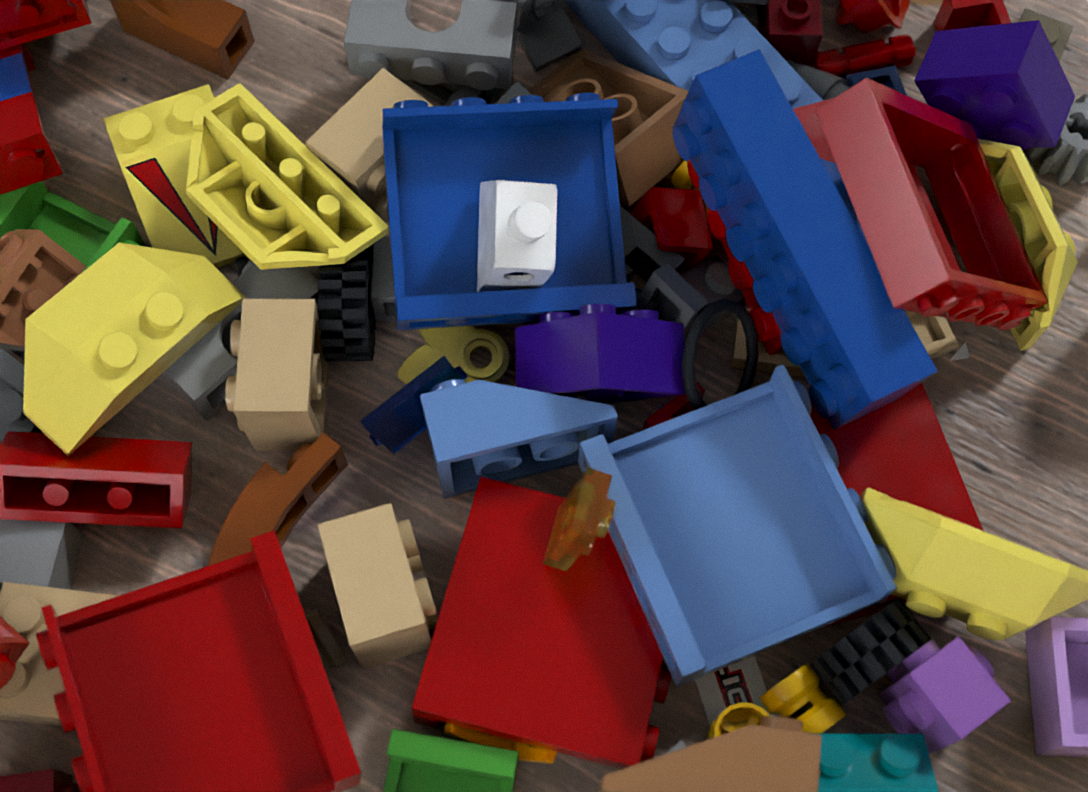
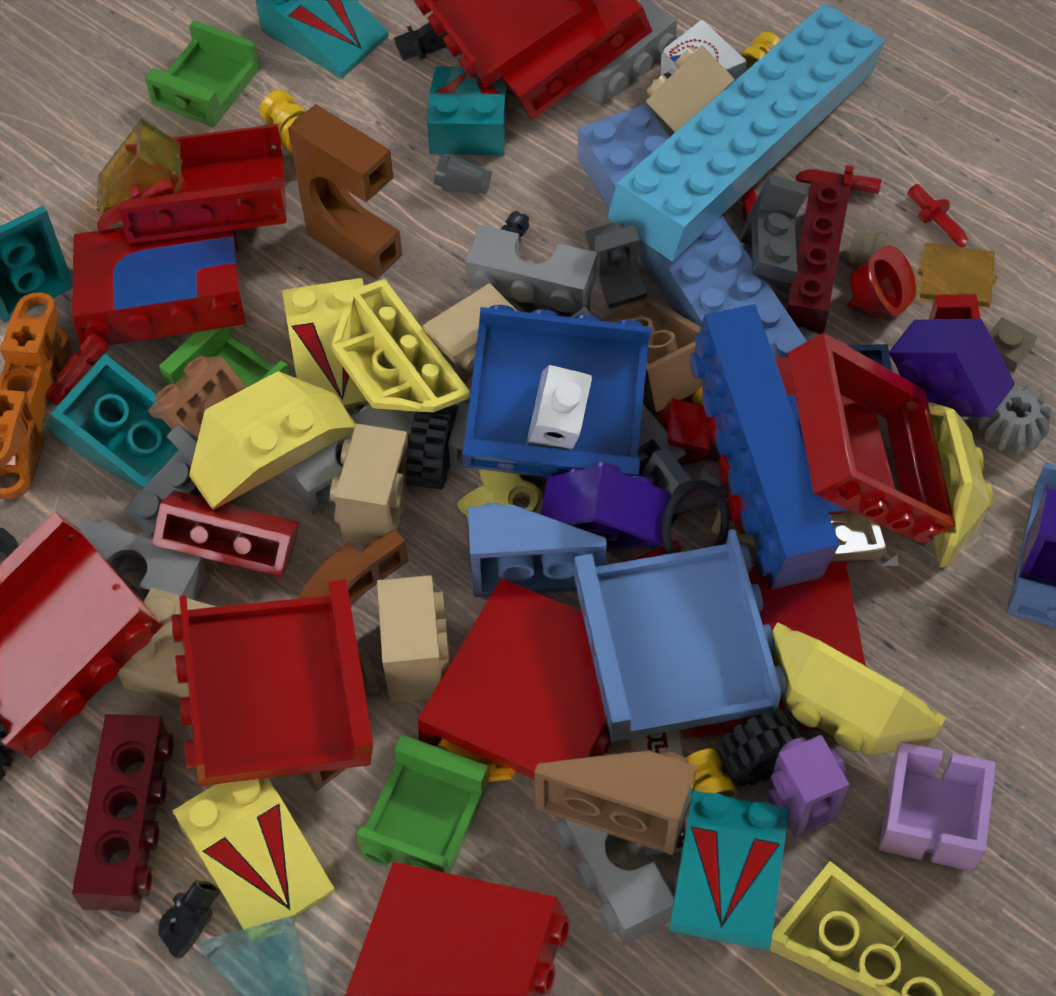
camera: 15 degrees right, 10 degrees down
(401, 415) = (450, 526): clear blue piece -> none
(580, 519) = (563, 609): clear yellow plate -> none
(867, 56) = (867, 333): red axle -> none

